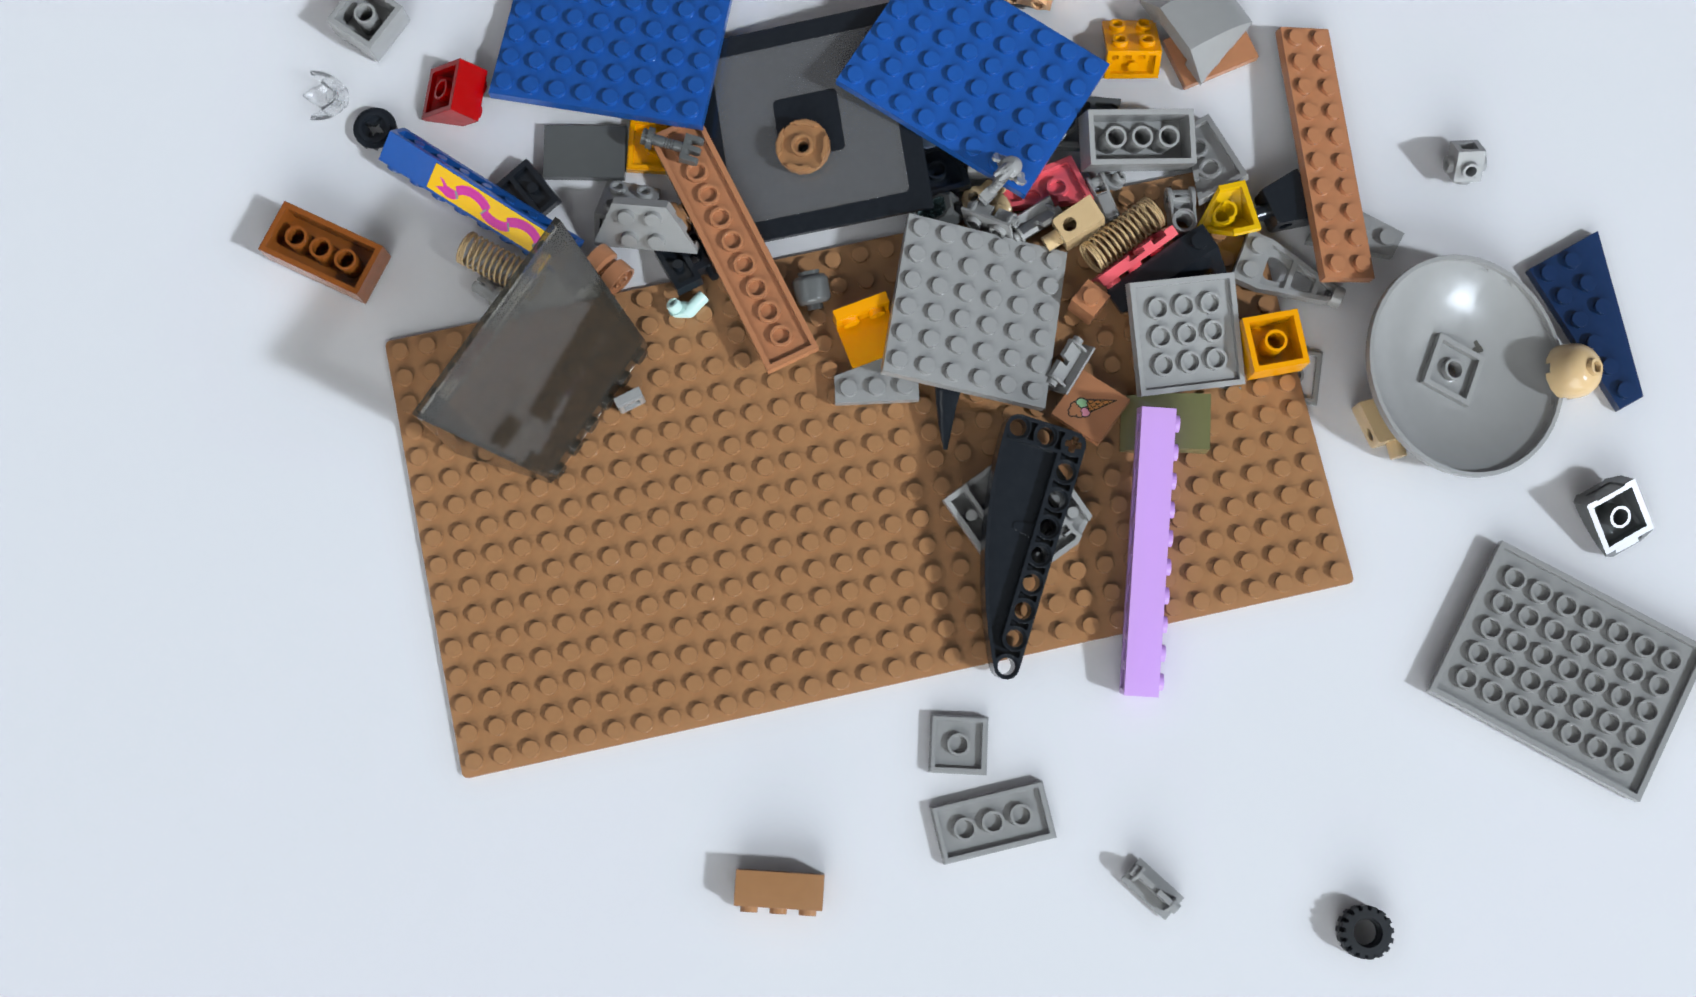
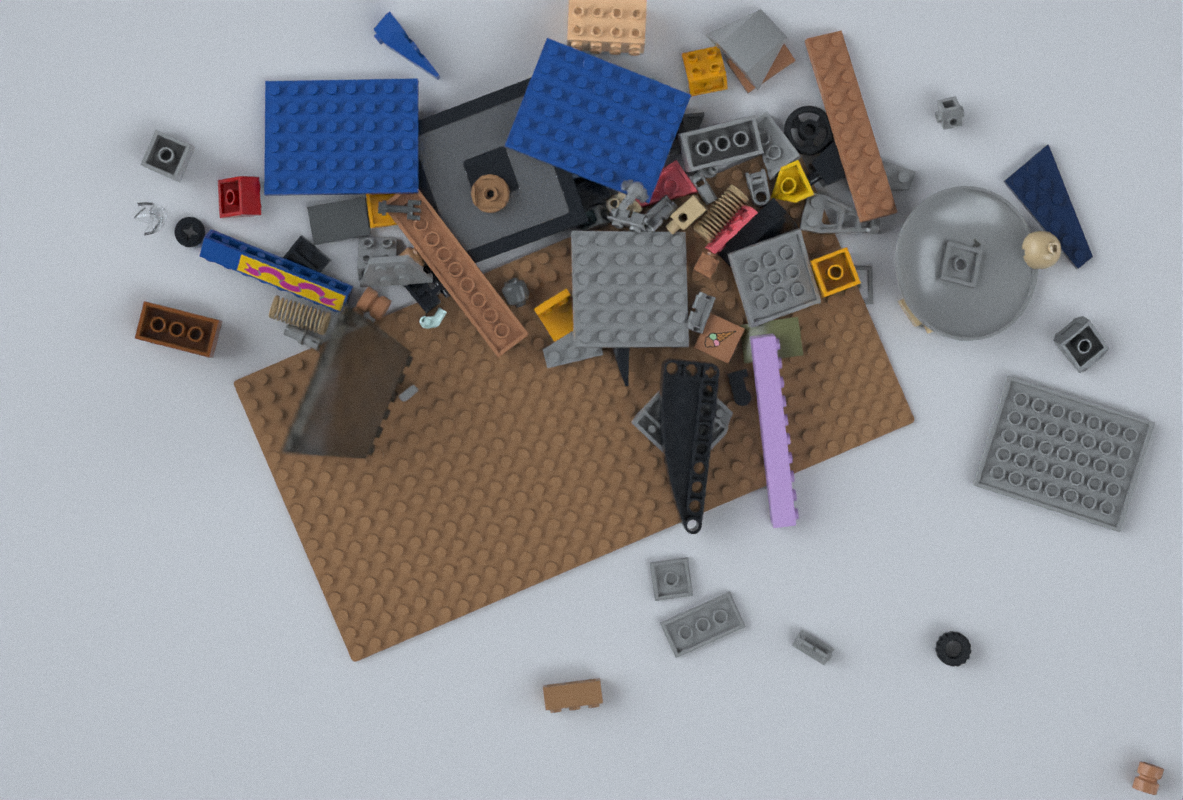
camera: 10 degrees left, 10 degrees up
(1105, 478) = (738, 387): none -> black leg
(1271, 143) = (794, 122): none -> black wheel

